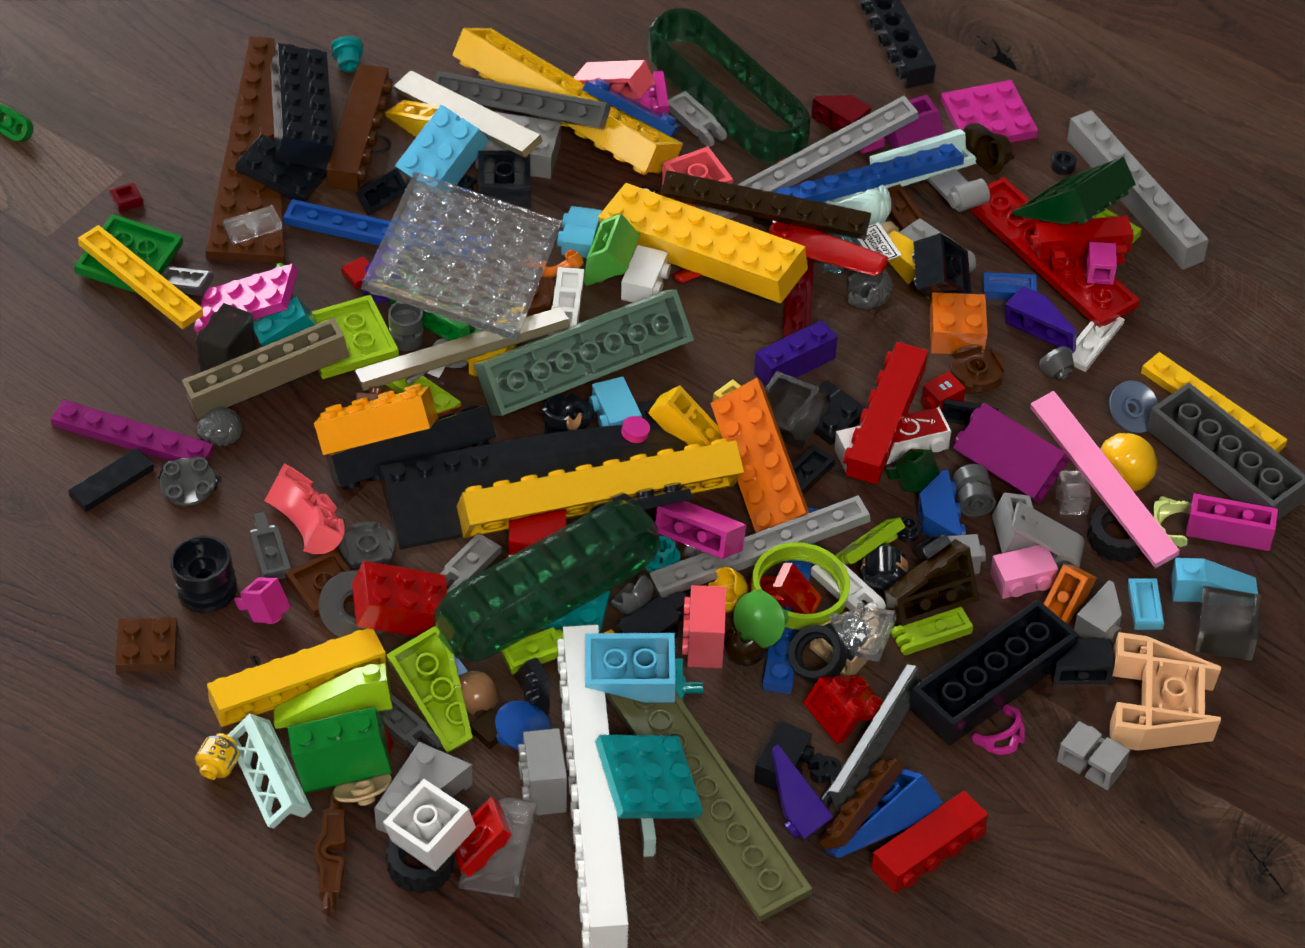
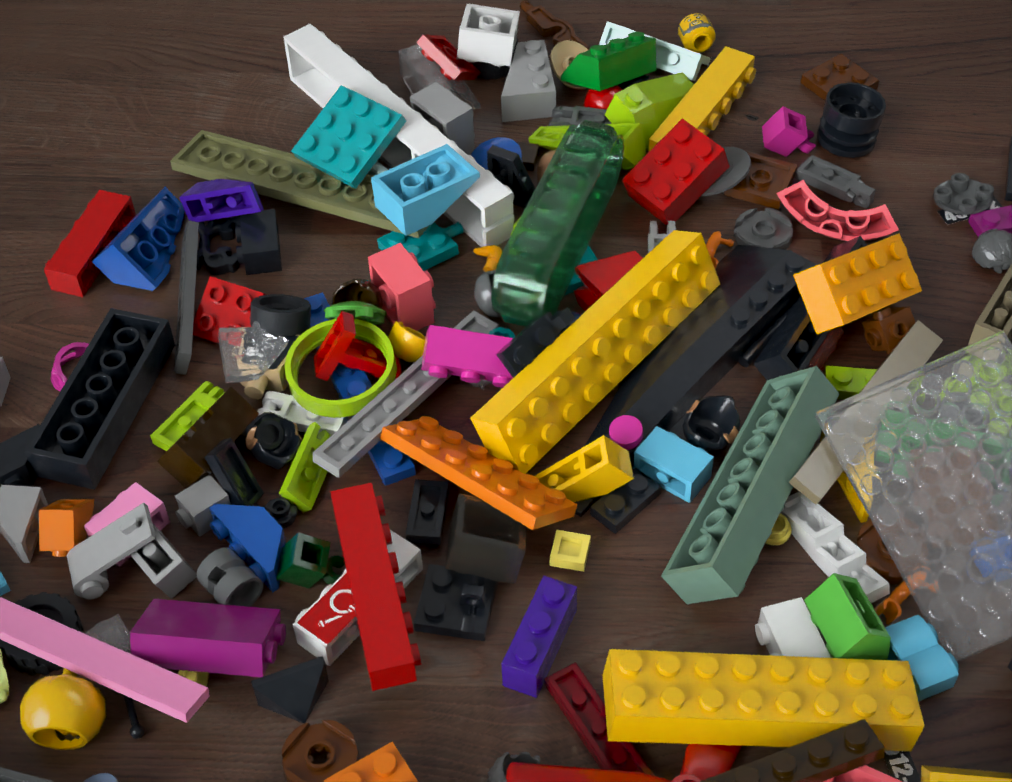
camera: 150 degrees right, 0 degrees up
(419, 554) = (713, 243): none -> orange piece
(656, 616) = (456, 281): black hinge -> none
(861, 804) = (166, 239): reddish brown plate -> none
(941, 388) = (337, 688): red brick -> none

